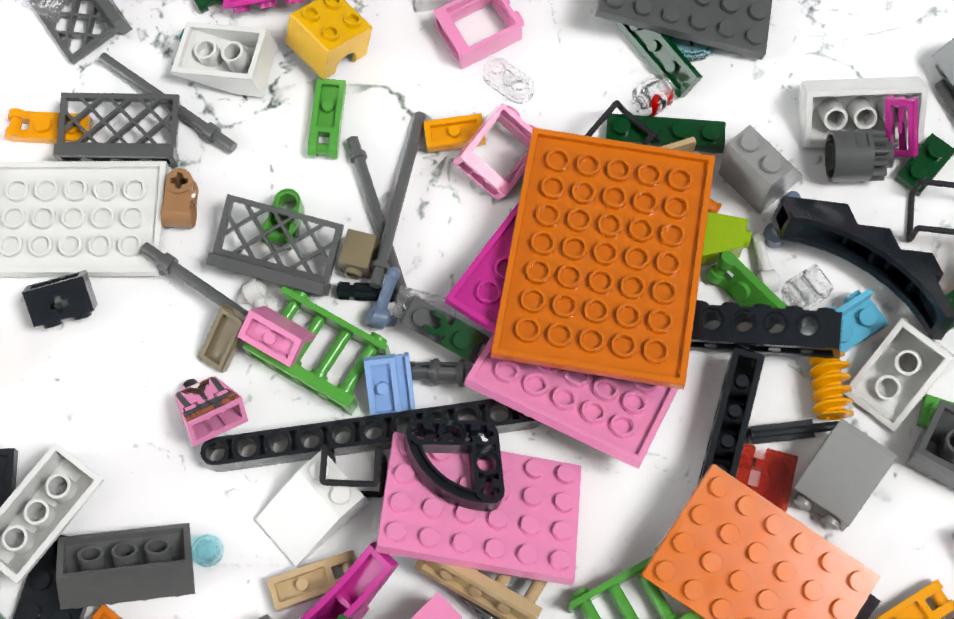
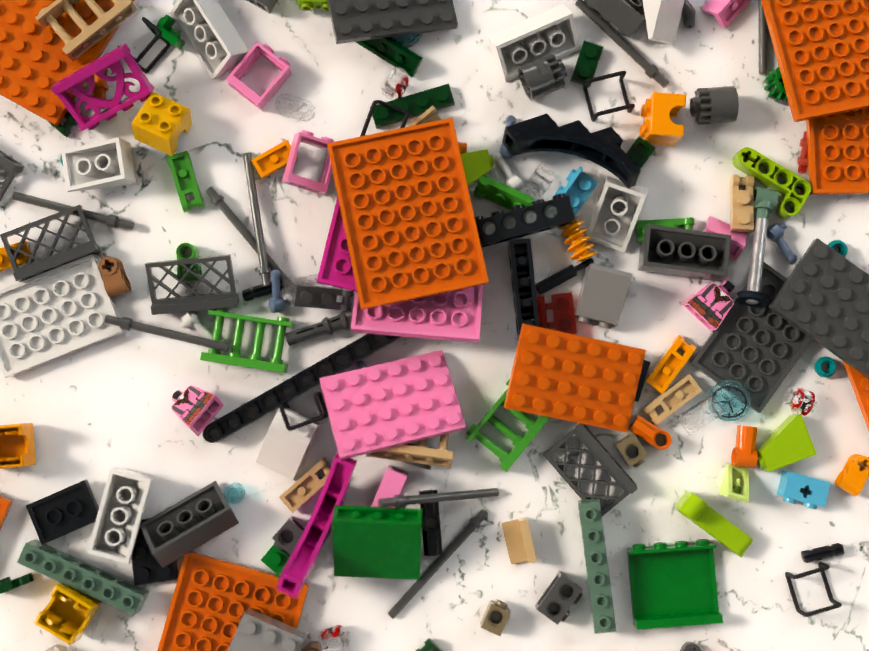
camera: 25 degrees left, 15 degrees up
(72, 287) = (77, 371): black brick -> none
(222, 338) = (185, 357): dark tan tile -> none
(275, 334) = (217, 344): bright pink panel -> none
(357, 254) = (247, 268): dark tan brick -> none
(389, 383) = (303, 347): light blue plate -> none
(456, 337) = (333, 300): dark green plate -> none
(475, 448) = (375, 370): black beam -> none
(757, 169) = (482, 109): light grey slope -> none
(902, 103) = (561, 32): dark pink tile -> none

